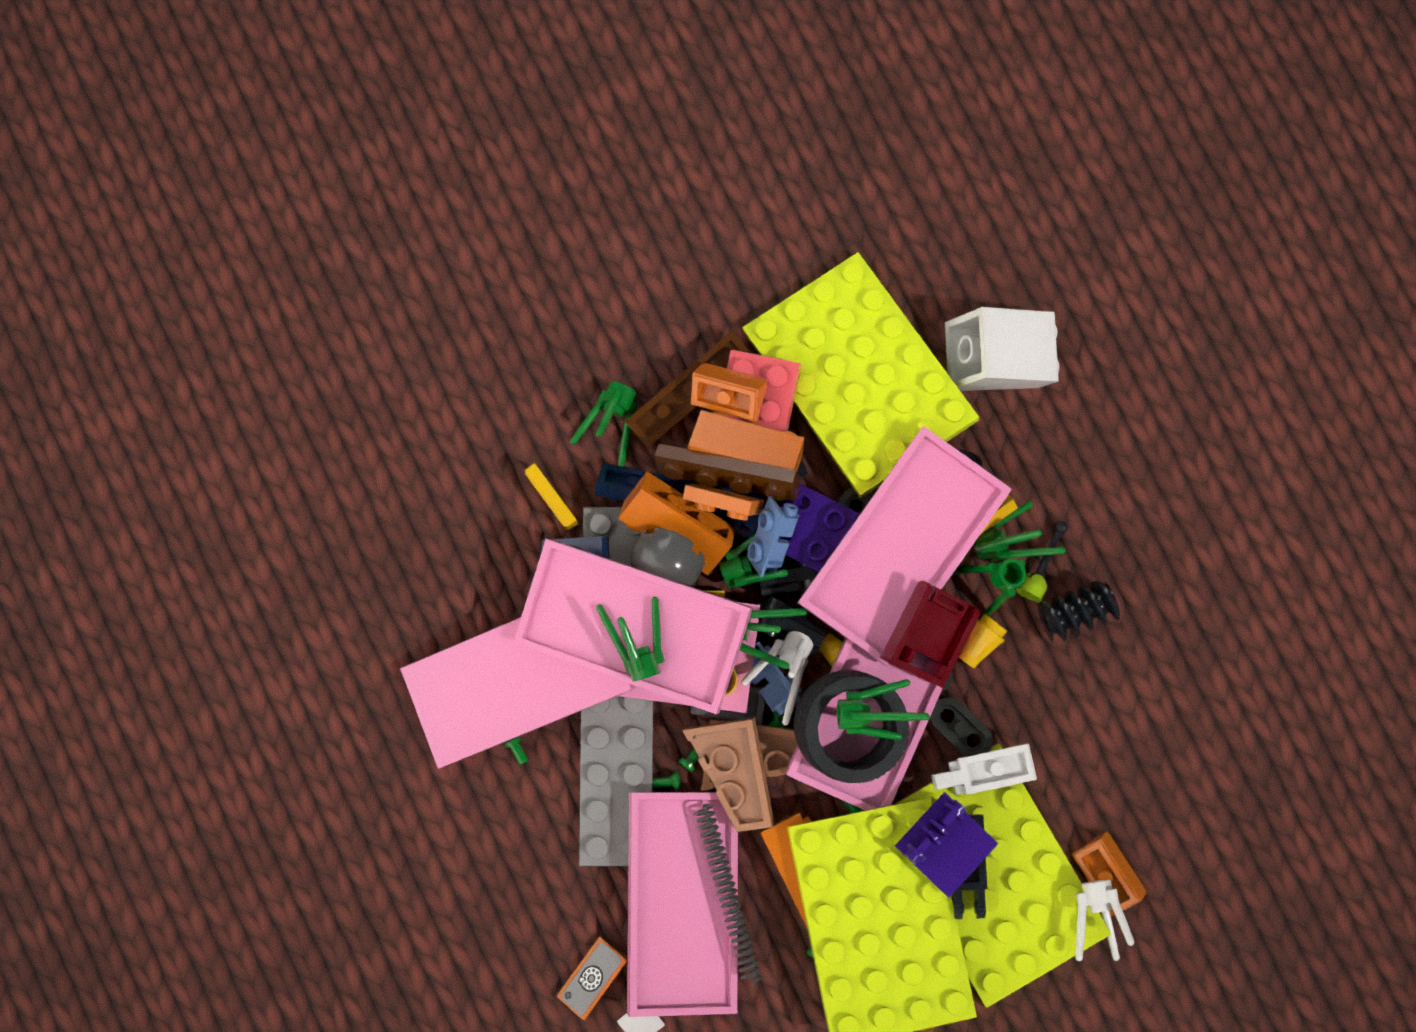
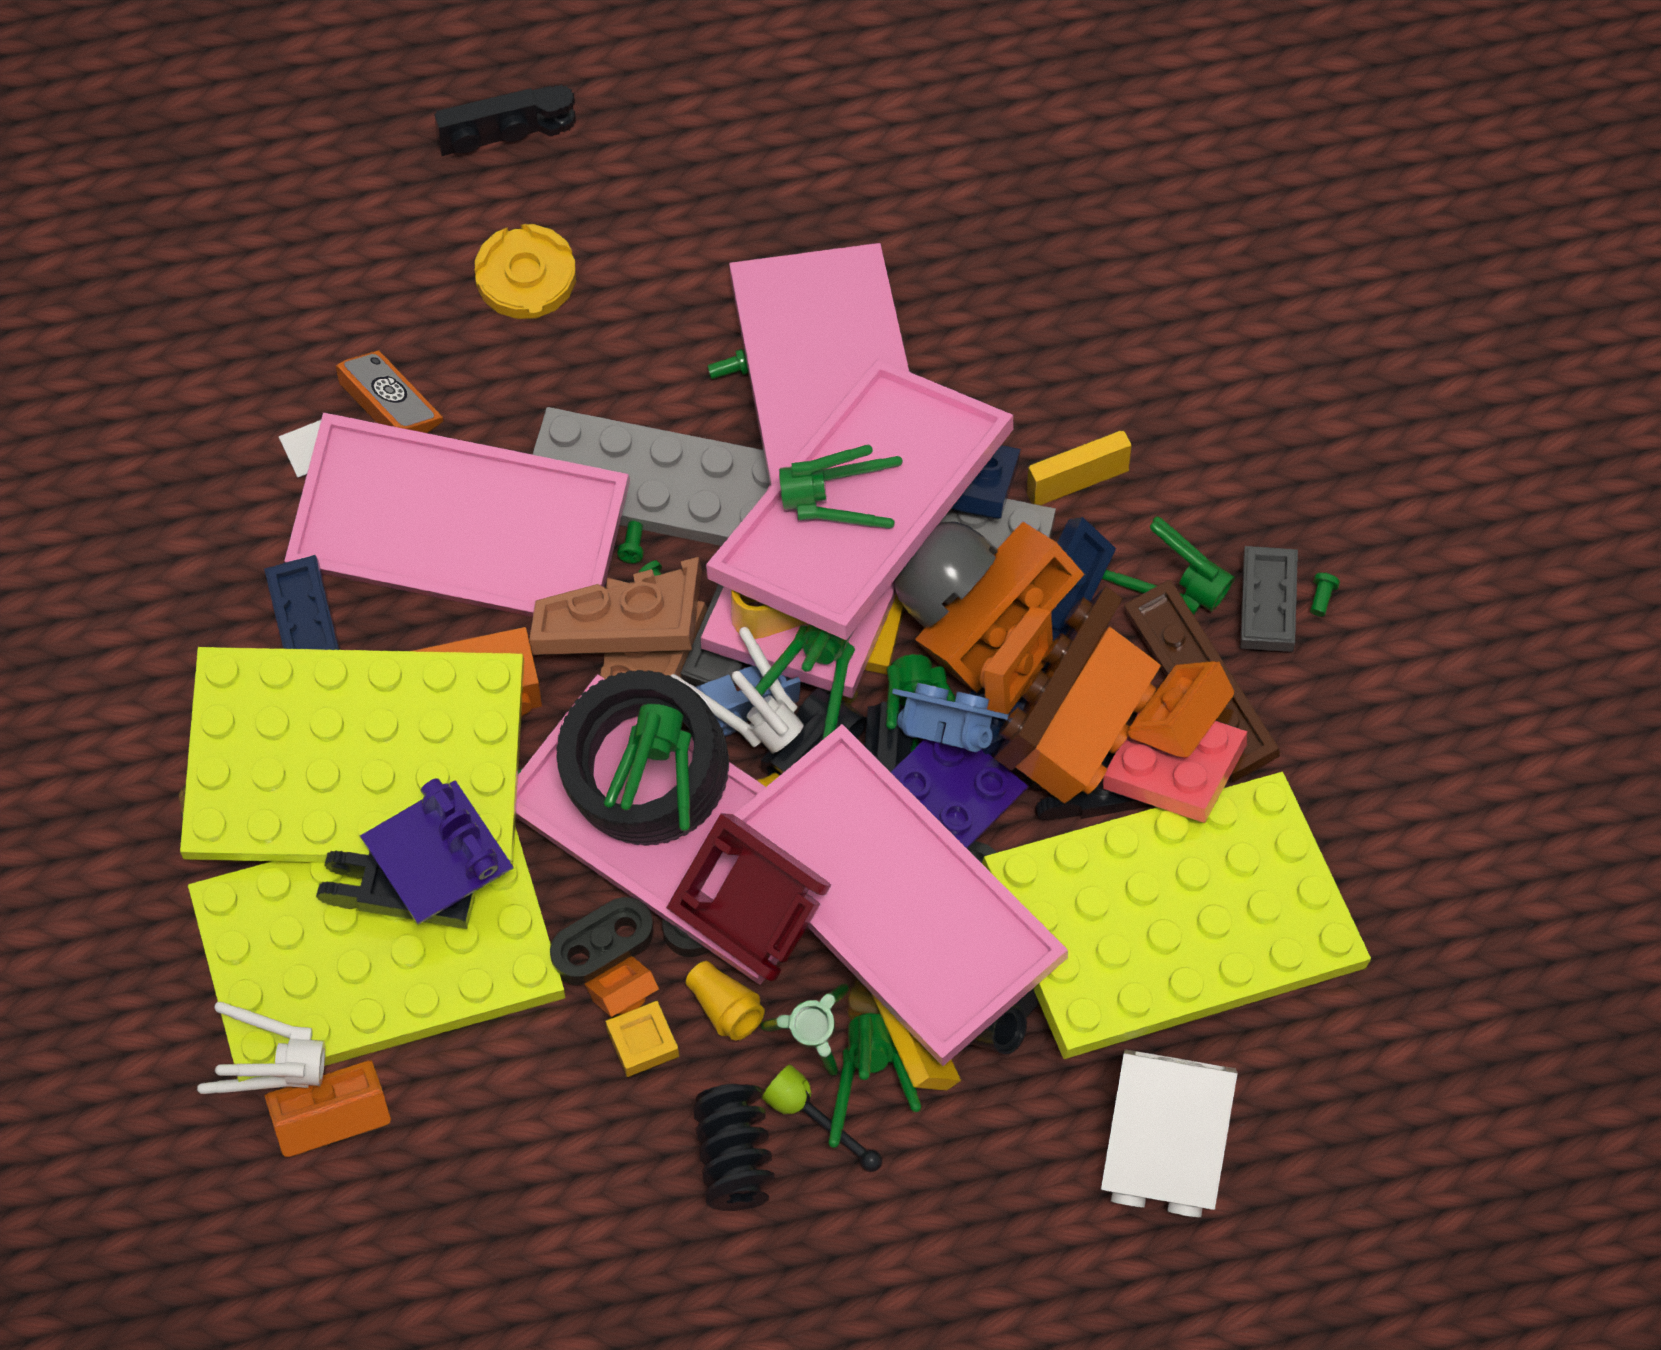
camera: 100 degrees right, 20 degrees down
(351, 955) = (505, 118): none -> black hinge
(470, 910) = (525, 271): none -> yellow tile
(600, 325) = (1325, 584): none -> green piece
(619, 358) = (1269, 598): none -> dark grey plate
(709, 825) = (449, 576): dark grey piece -> none
(774, 990) = (302, 605): none -> dark blue plate
(988, 770) = (527, 948): white hinge -> none
(990, 706) = (622, 987): none -> orange plate
(1020, 686) = (642, 1038): none -> yellow plate

